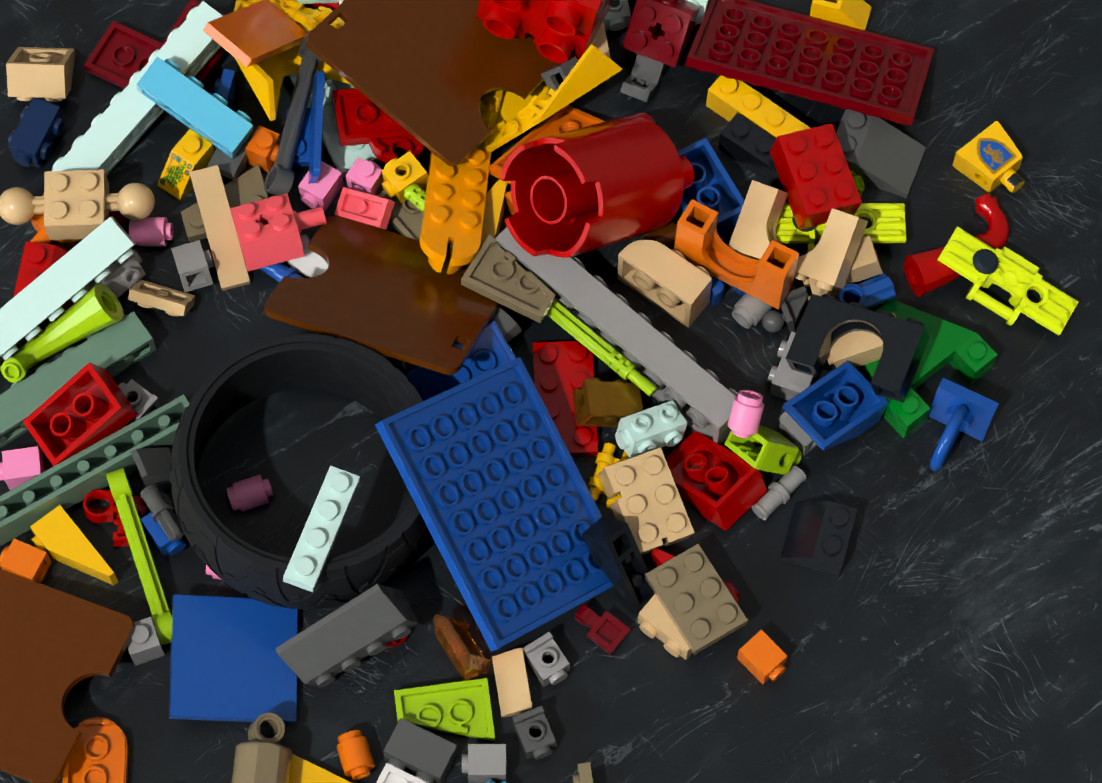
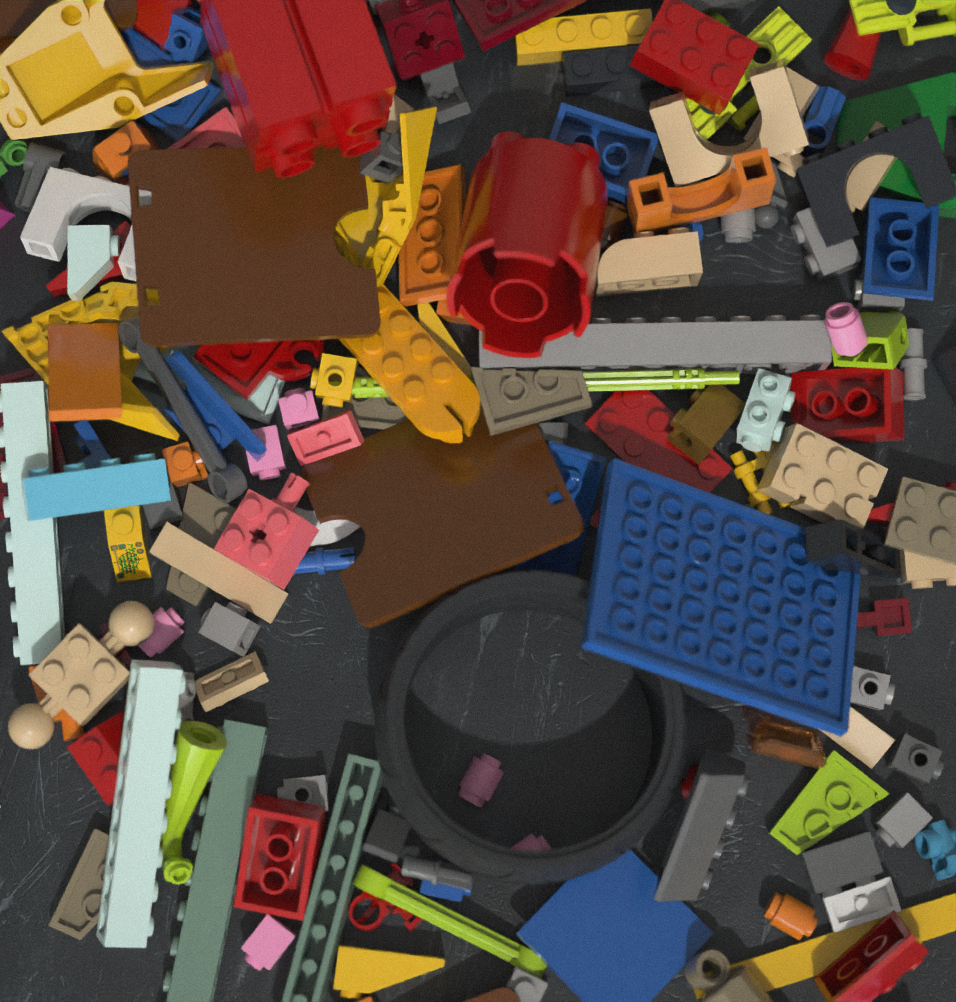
camera: 45 degrees left, 15 degrees up
(321, 529) = (618, 775): light aqua plate -> none

